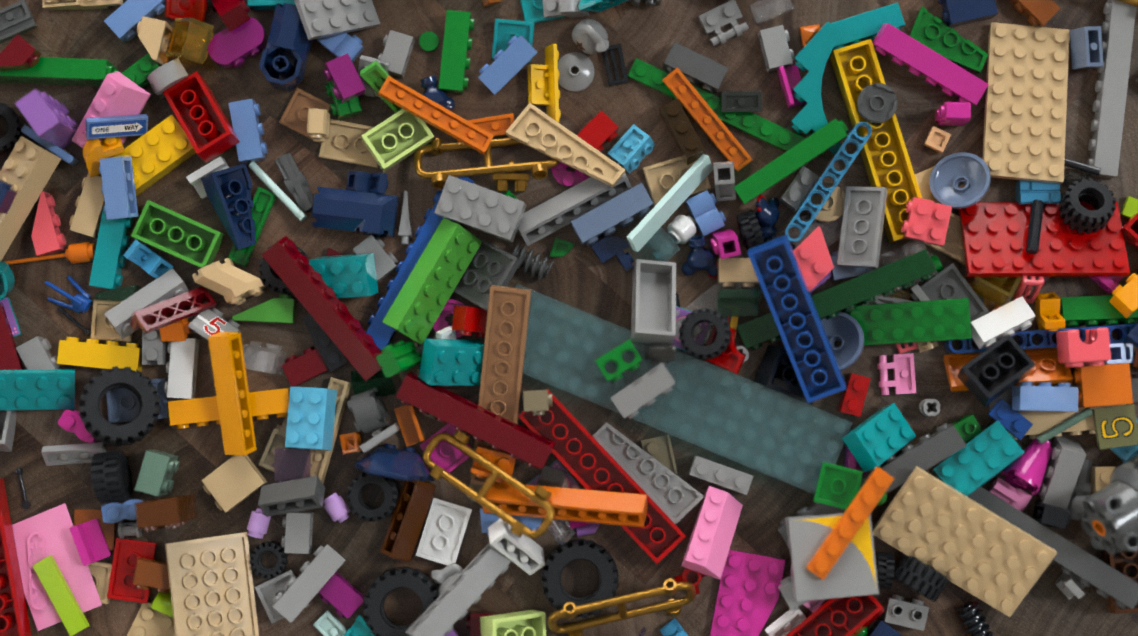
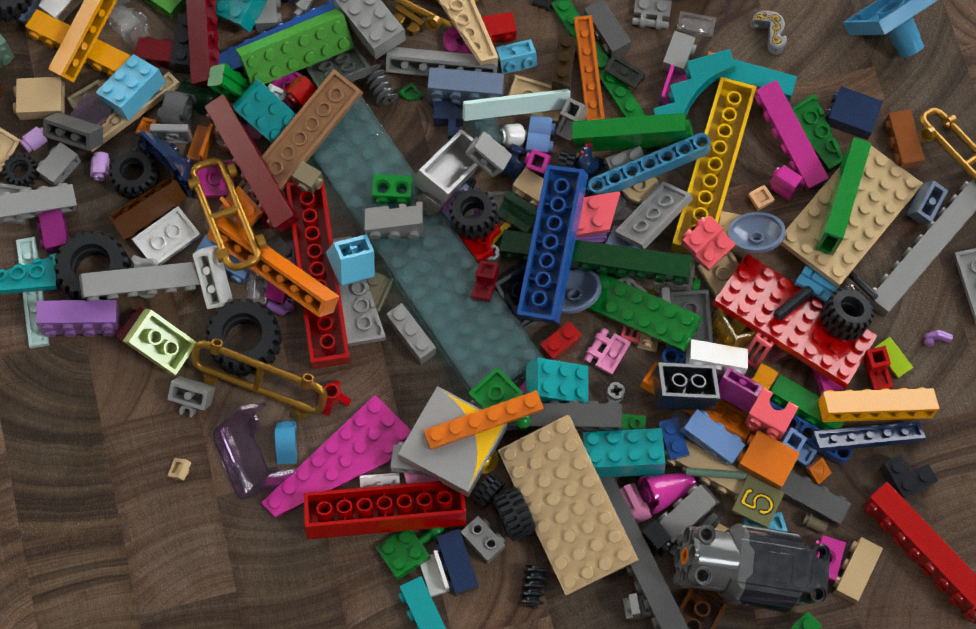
camera: 35 degrees right, 15 degrees down
(629, 449) = (352, 260): none -> medium azure slope
(680, 268) = (488, 154): none -> light grey brick
(712, 533) = (372, 369): bright pink slope -> none
(758, 389) = (485, 281): none -> dark red slope
(877, 103) = (728, 134): dark grey tile -> none
(1019, 98) = (843, 196): none -> green brick
(1041, 339) = (738, 389): none -> magenta brick

